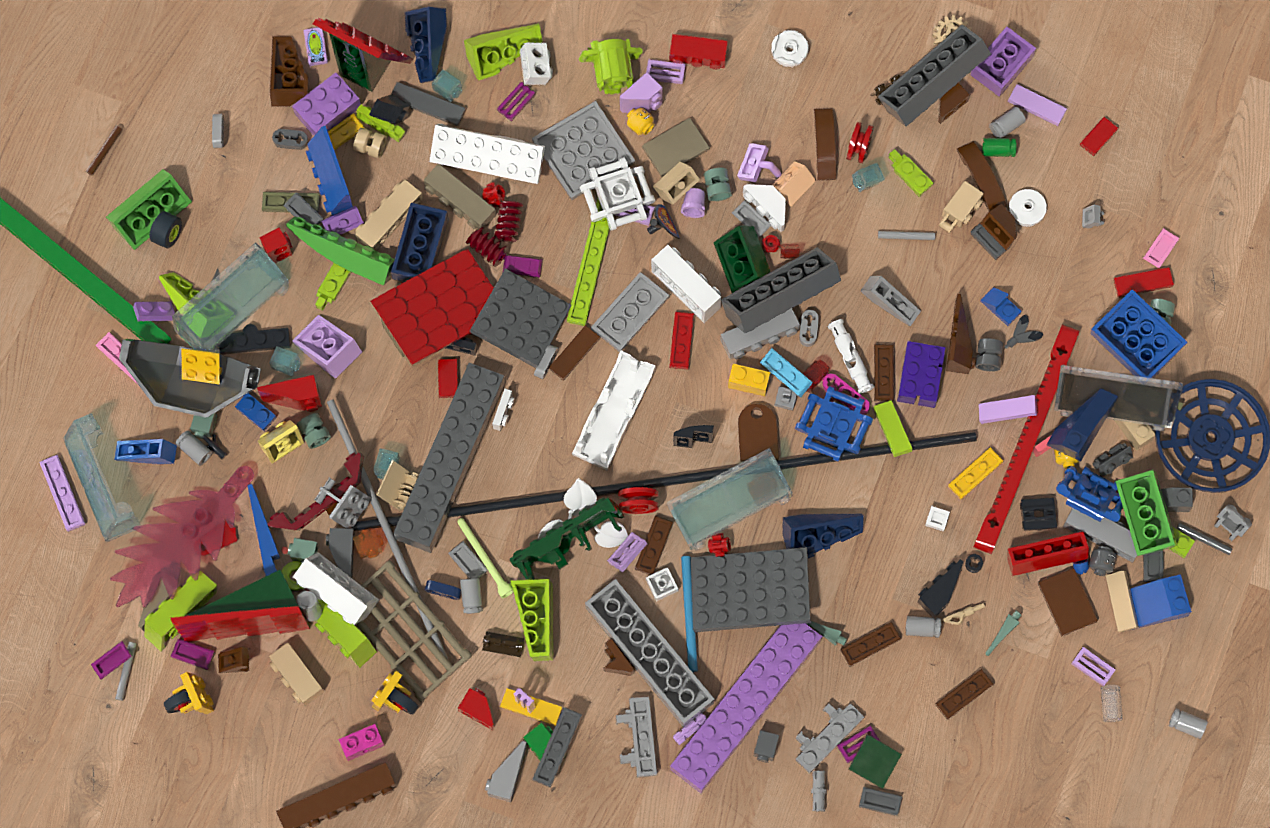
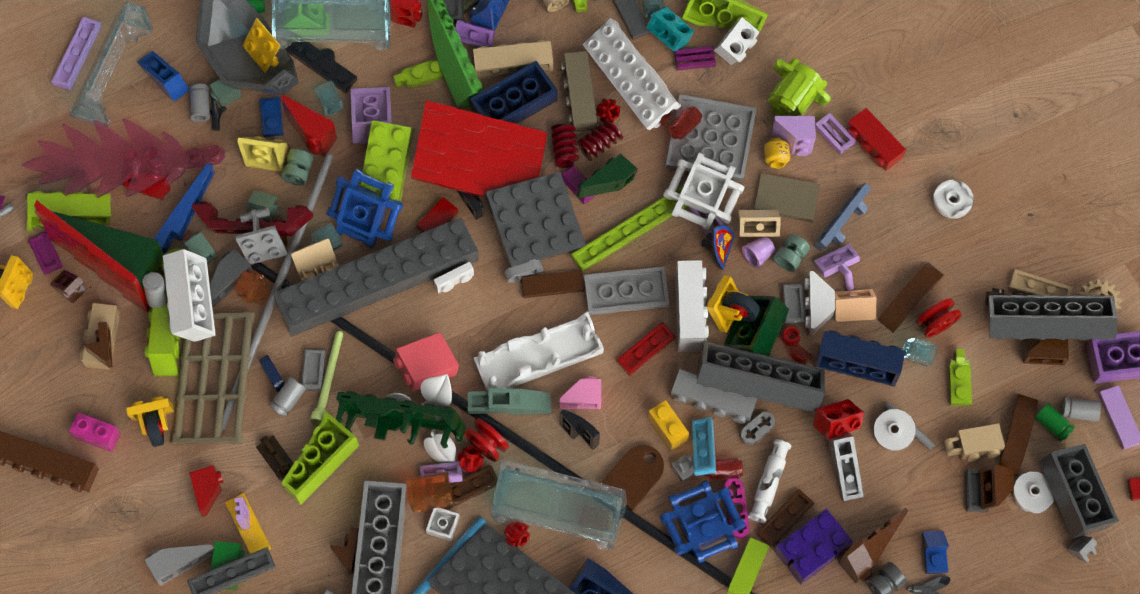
camera: 40 degrees right, 5 degrees down
(312, 682) = (102, 348): none -> reddish brown slope
(315, 479) = (261, 200): none -> sand green brick
(378, 371) = (388, 156): none -> lime brick
(395, 417) = (363, 209): none -> blue brick
(480, 95) = (670, 29): none -> teal brick
(543, 485) = (424, 360): none -> coral brick
(544, 240) = (612, 177): none -> dark green slope
(558, 156) = (684, 123): none -> clear red head
(626, 461) = (509, 401): none -> sand green slope
(635, 570) = (430, 492): none -> clear orange brick
(638, 523) = (470, 459): none -> red gear
(672, 410) = (583, 395): none -> bright pink slope
(714, 257) = (730, 305): none -> yellow plate
(726, 112) = (853, 203): none -> sand blue hinge
(833, 217) = (860, 358): none -> dark blue brick
(858, 272) = (838, 418): none -> red brick
(890, 250) = (898, 440): none -> white plate
(902, 61) = (1036, 285): none -> tan tile
(1057, 180) = (1078, 491): none -> dark grey brick

